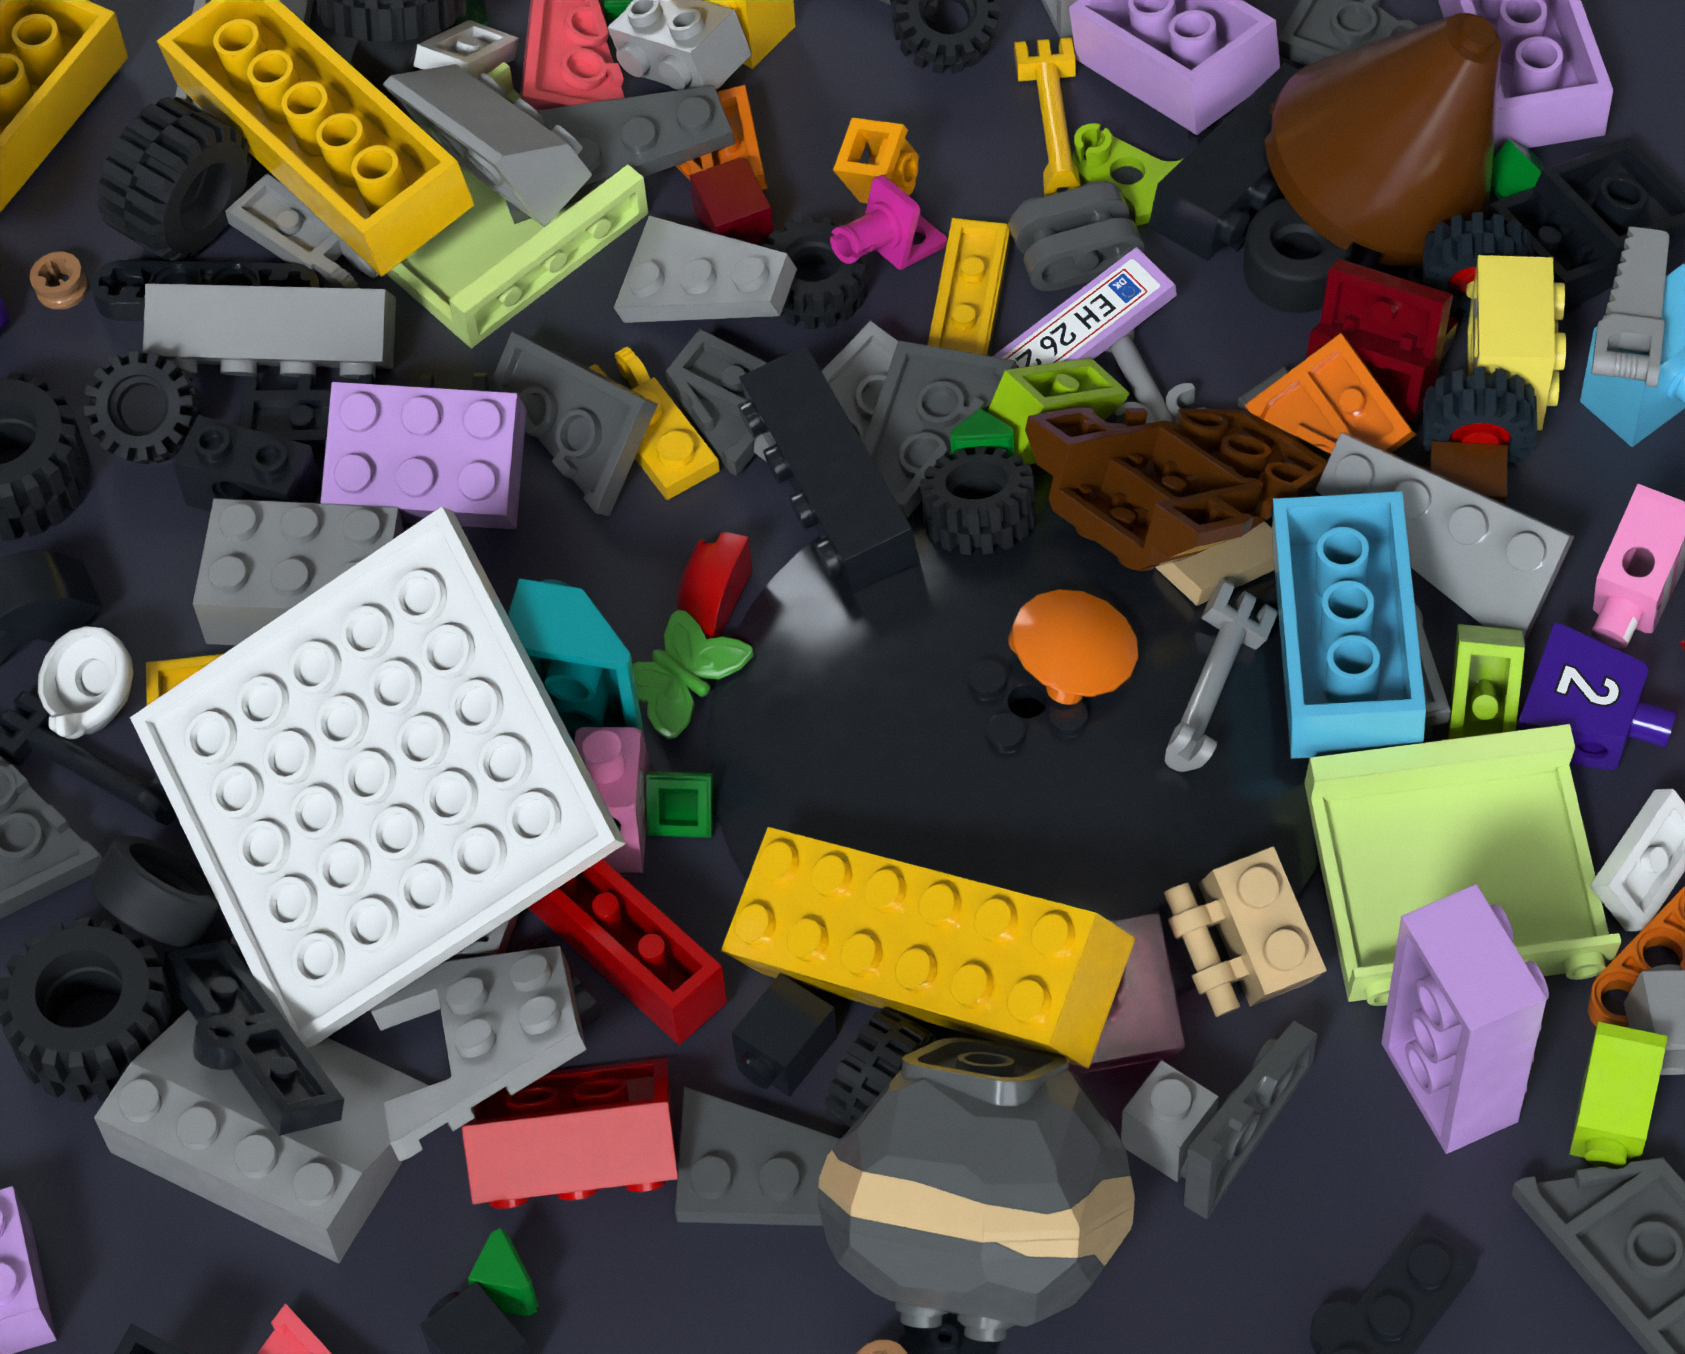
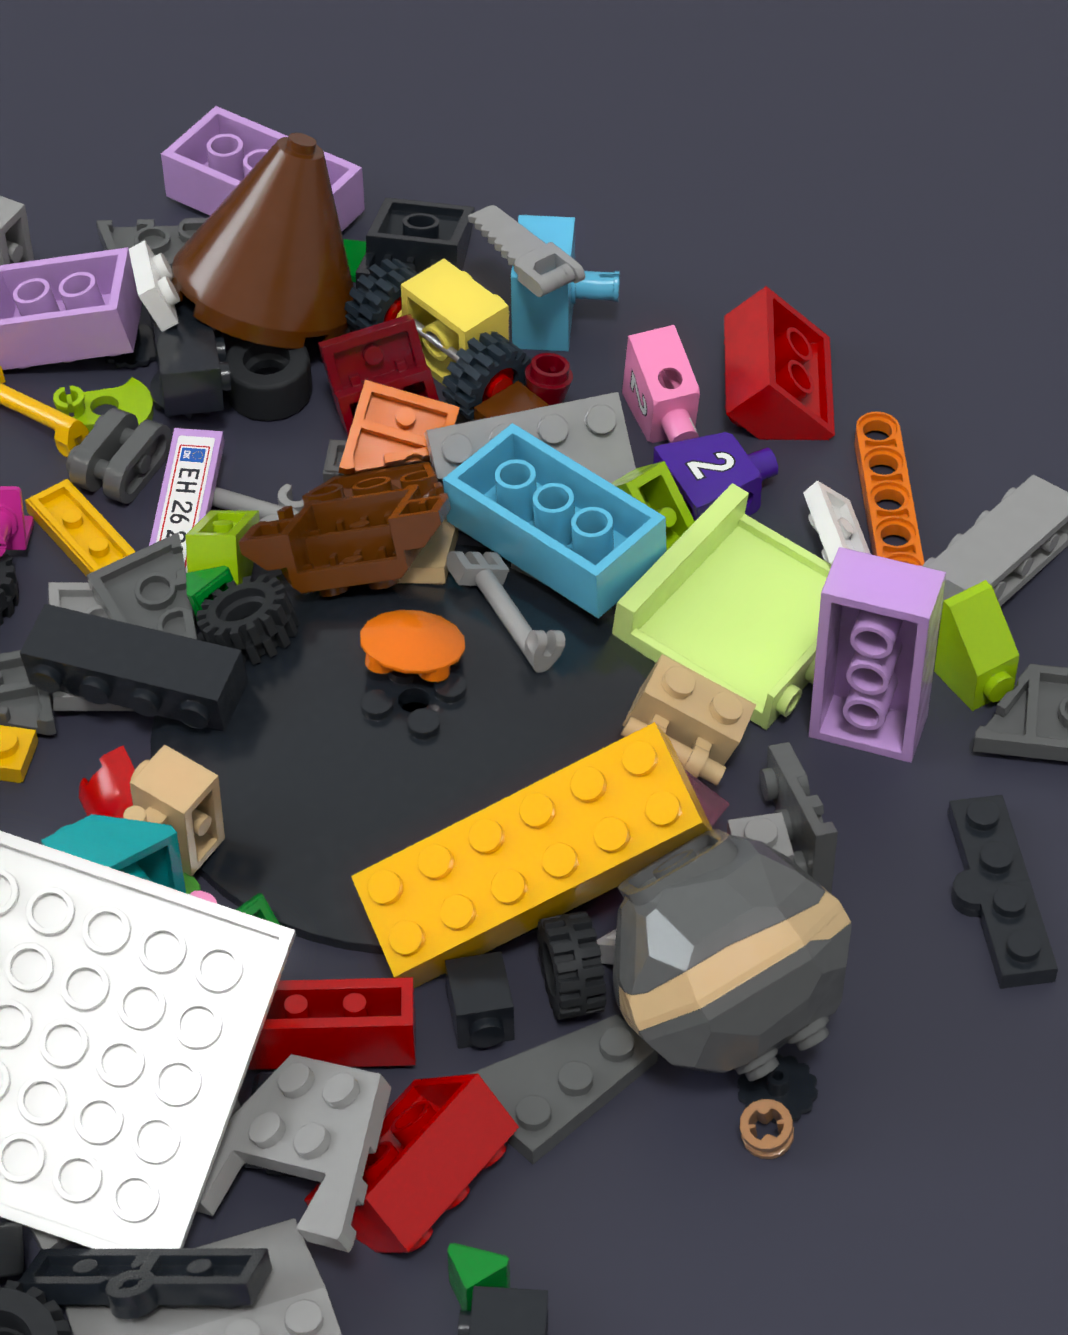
camera: 50 degrees left, 10 degrees down
(693, 642) = (182, 795): none -> tan brick
(1253, 80) = (154, 285): none -> white plate
(1535, 471) = (549, 377): none -> dark red cone

